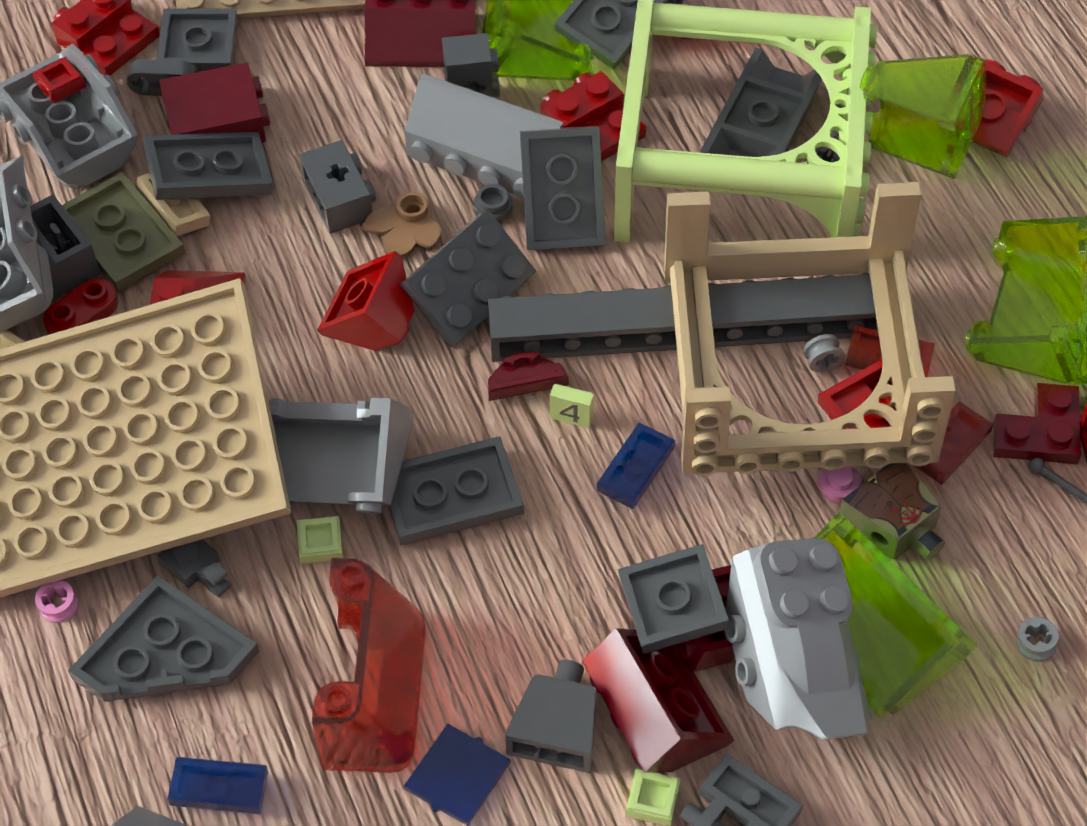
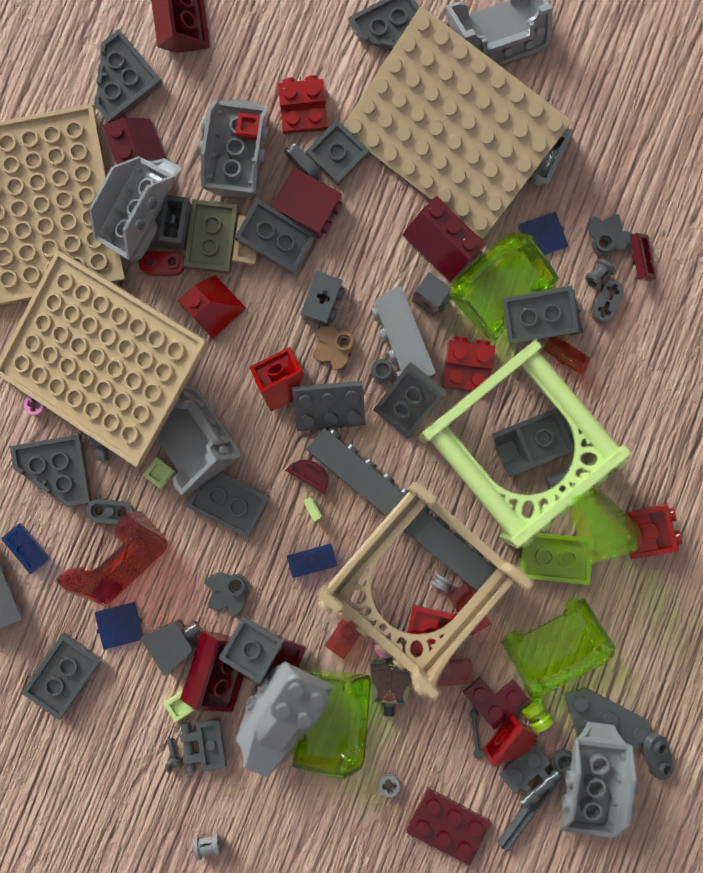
camera: 40 degrees right, 30 degrees up
(295, 635) = (111, 510): none -> dark grey plate
(563, 603) = (224, 593): none -> dark grey plate
(773, 506) = (343, 638): none -> clear red plate
(944, 218) = (555, 559): none -> lime plate

